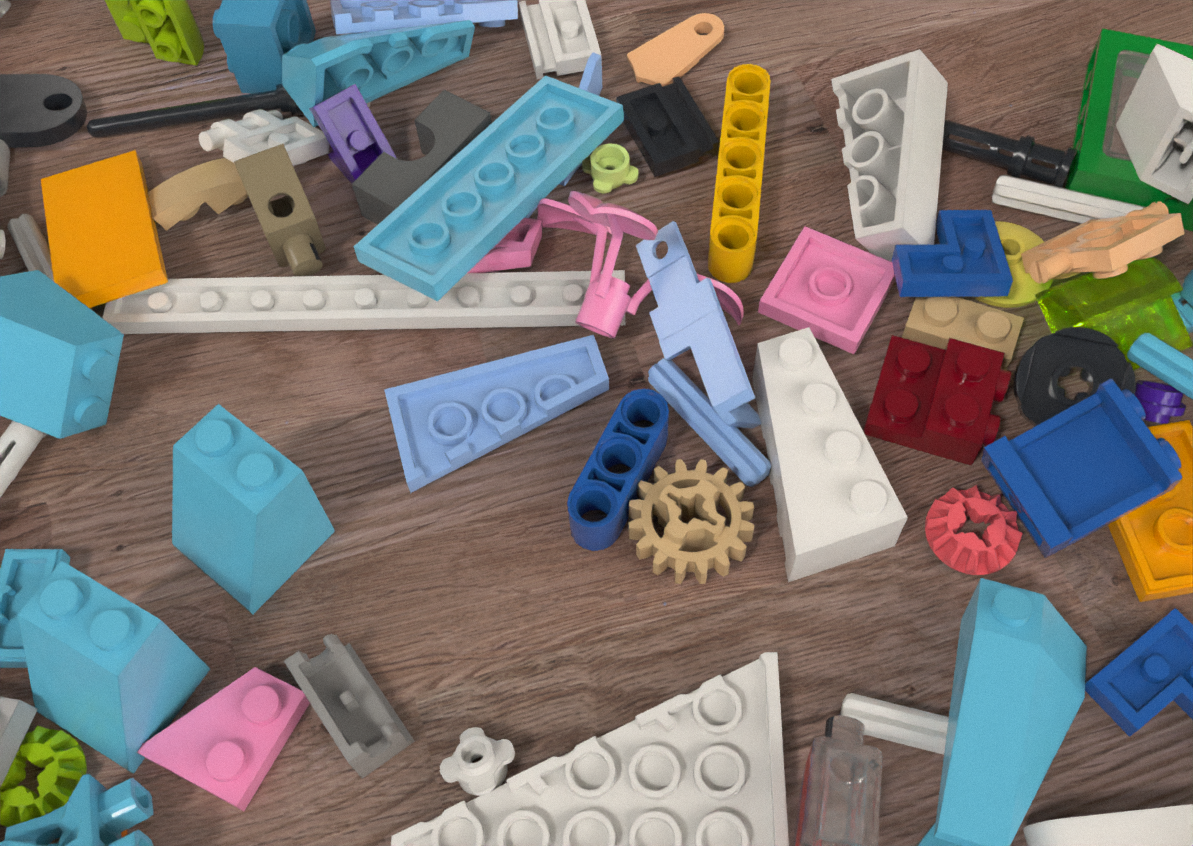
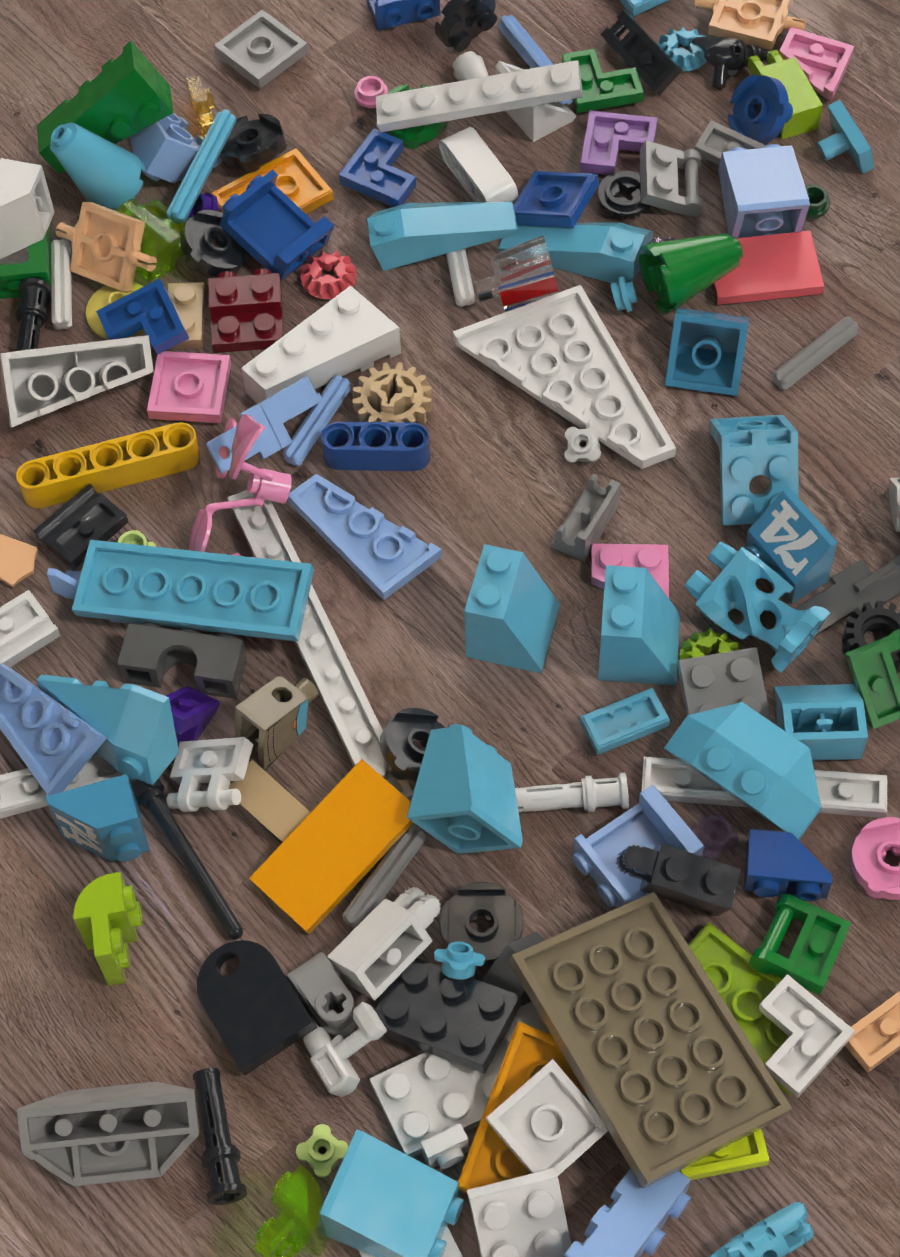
camera: 115 degrees left, 0 degrees up
(180, 349) = (398, 738): none -> black plate

